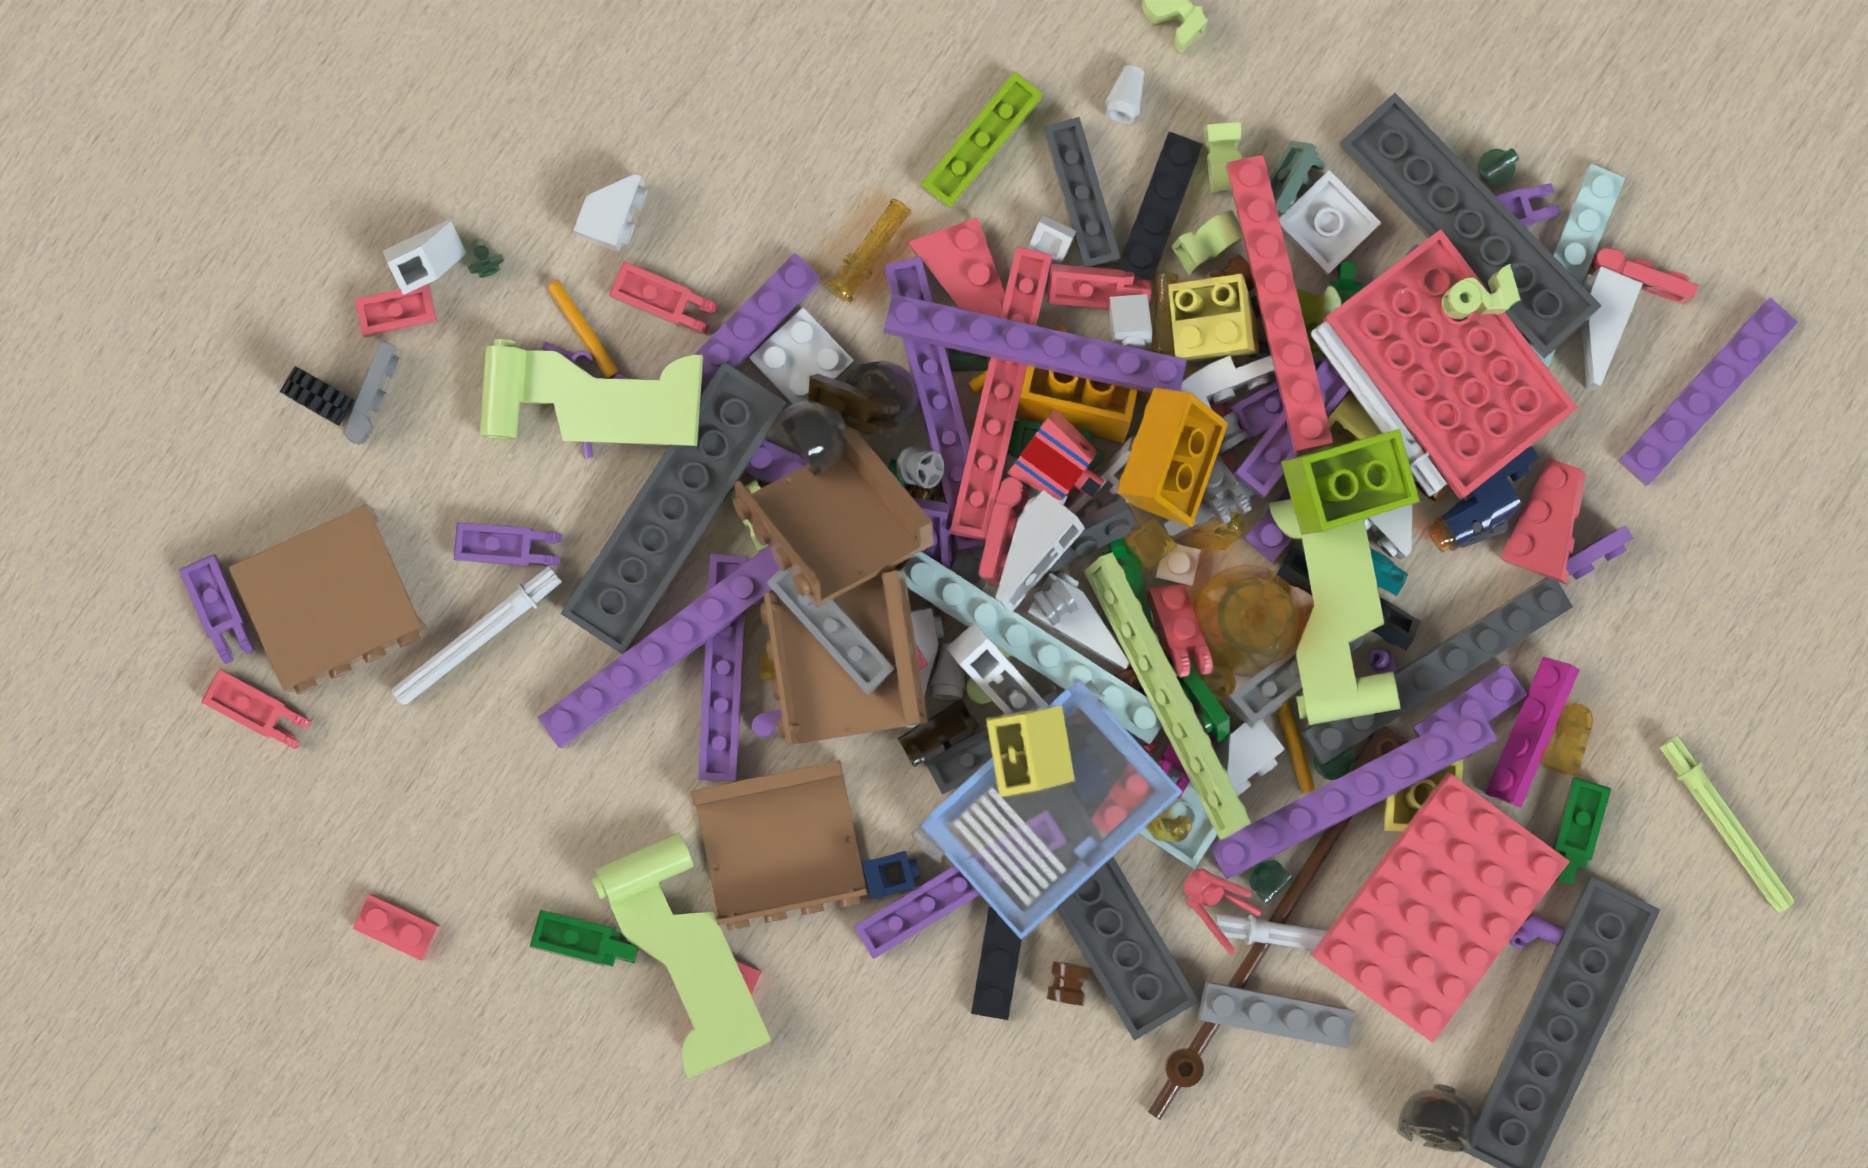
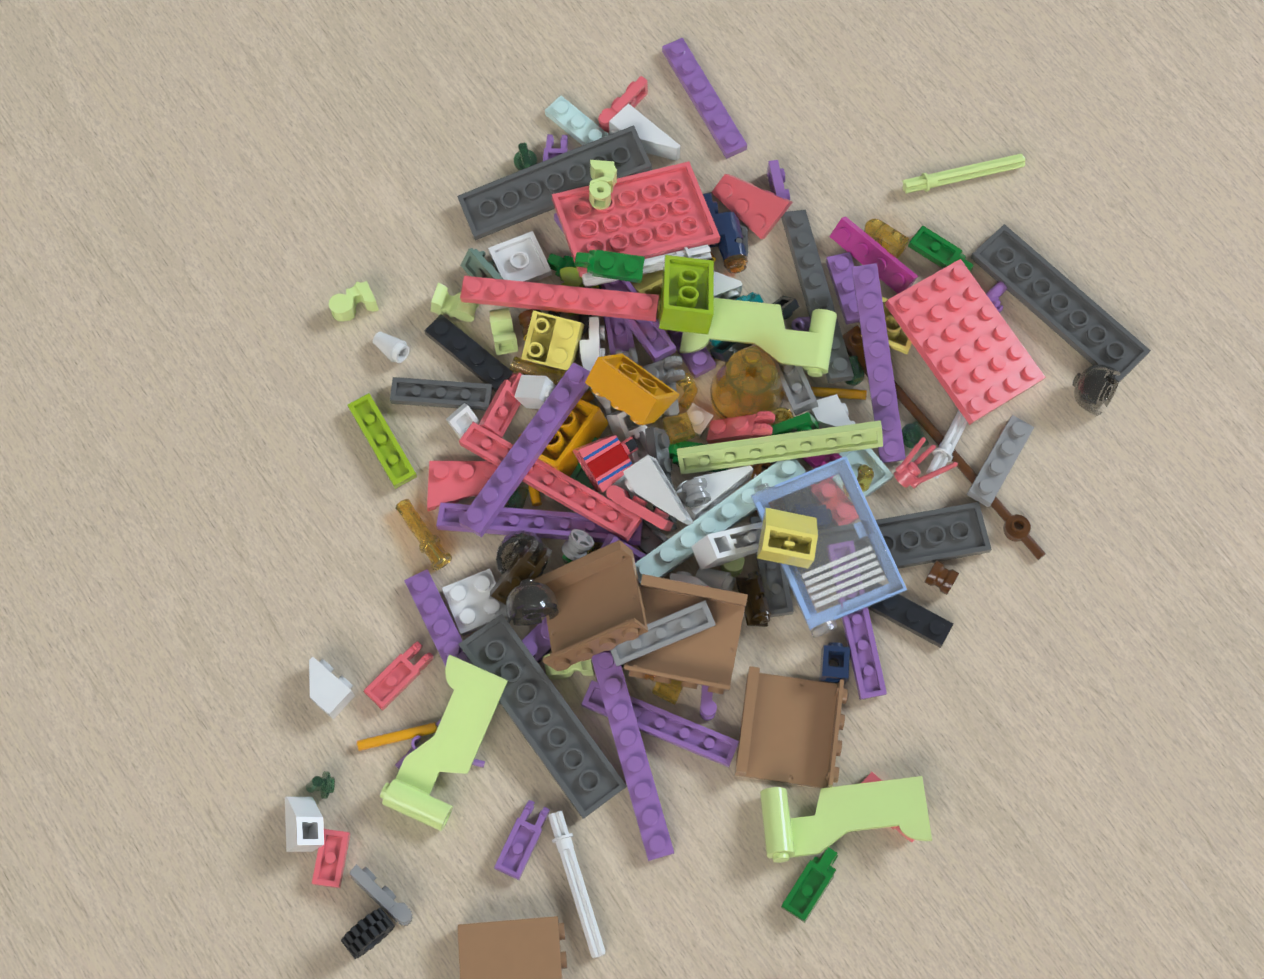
camera: 70 degrees left, 15 degrees down
(1352, 359) = (612, 265): none -> green hinge

